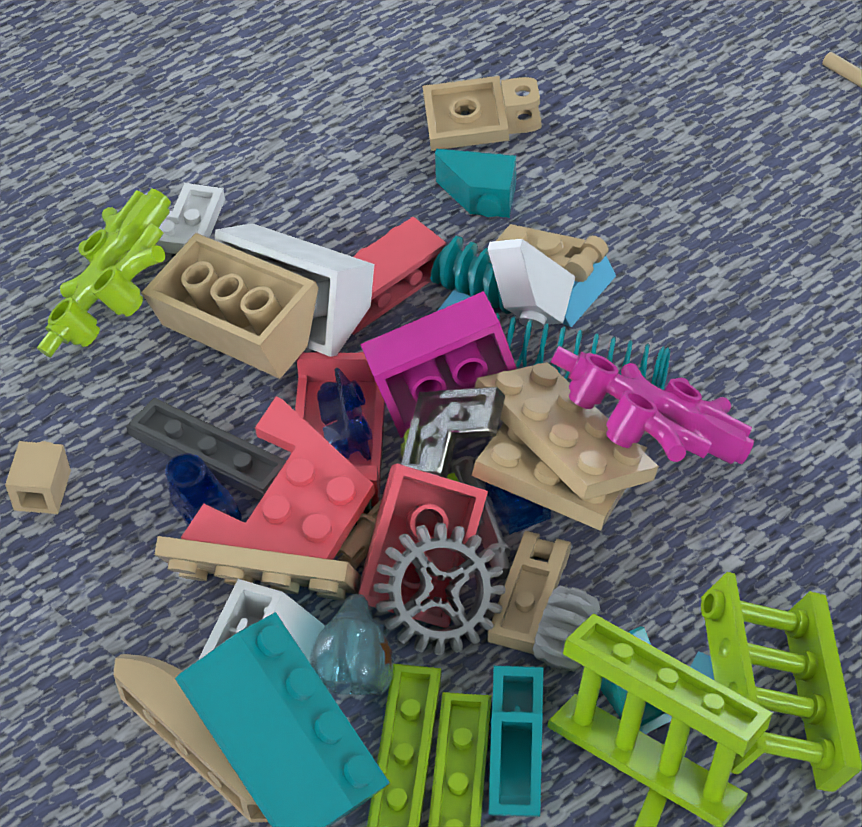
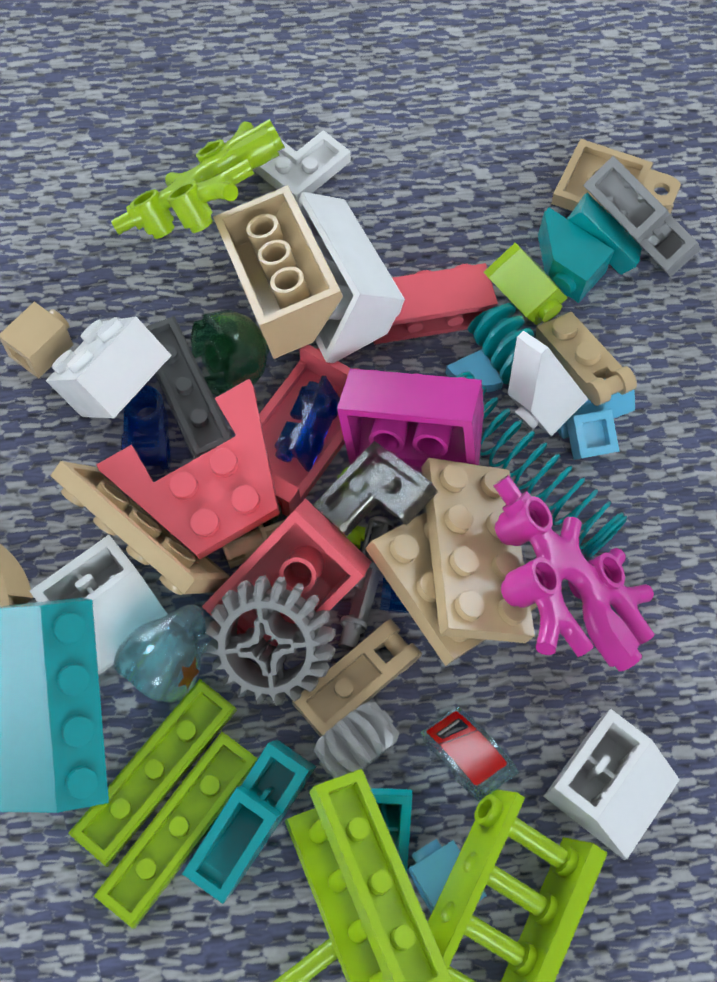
camera: 25 degrees right, 15 degrees up
(133, 457) = (107, 367): none -> white brick
(229, 389) = (229, 344): none -> clear green cylinder
(461, 214) = (526, 285): none -> lime slope
(480, 140) = (599, 223): none -> teal slope
(521, 119) = (642, 216): none -> light grey slope
(595, 307) = (592, 434): none -> medium azure plate
(668, 585) = (469, 753): none -> slope
(794, 546) = (614, 783): none -> white slope

